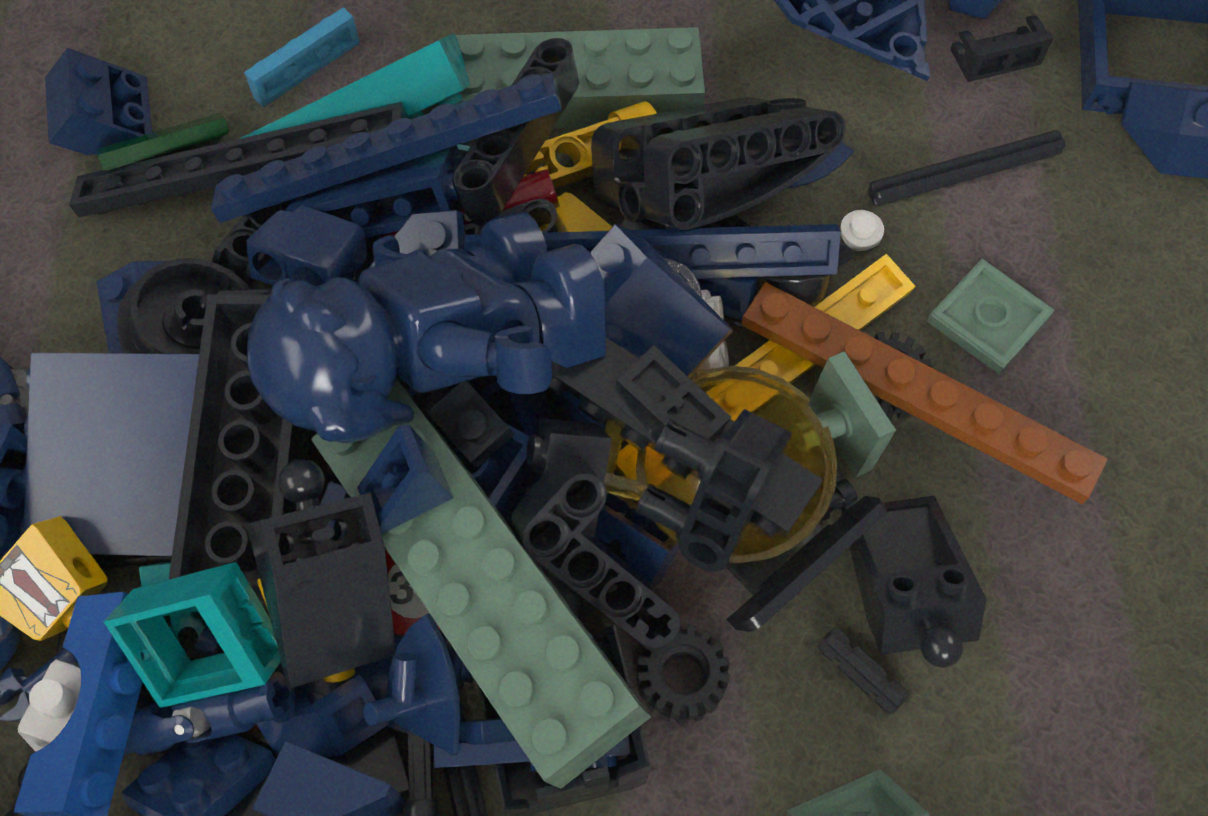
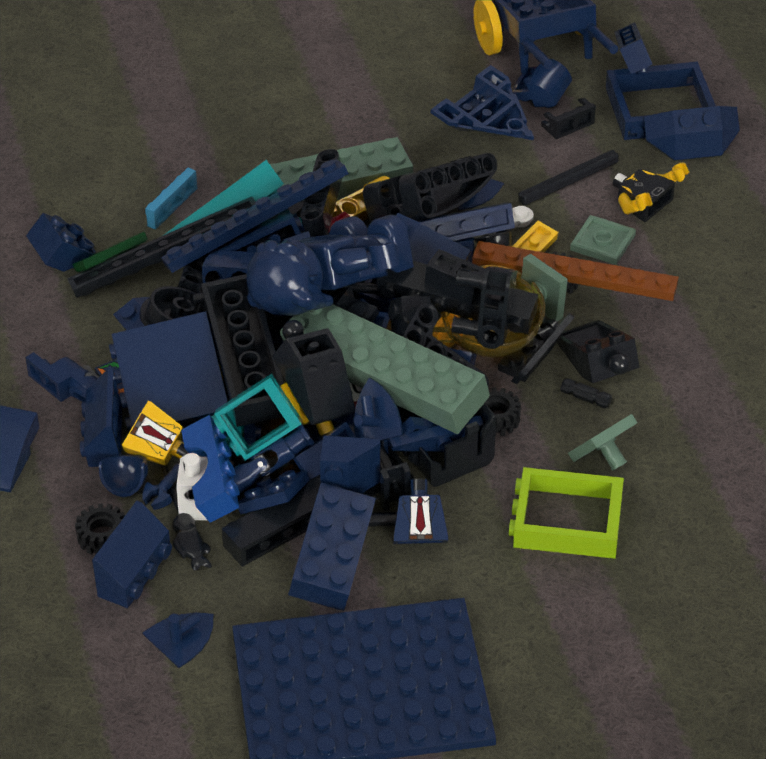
camera: 15 degrees left, 20 degrees down
(405, 480) = (343, 318): dark blue slope -> none
(1097, 234) = (647, 192): none -> torso

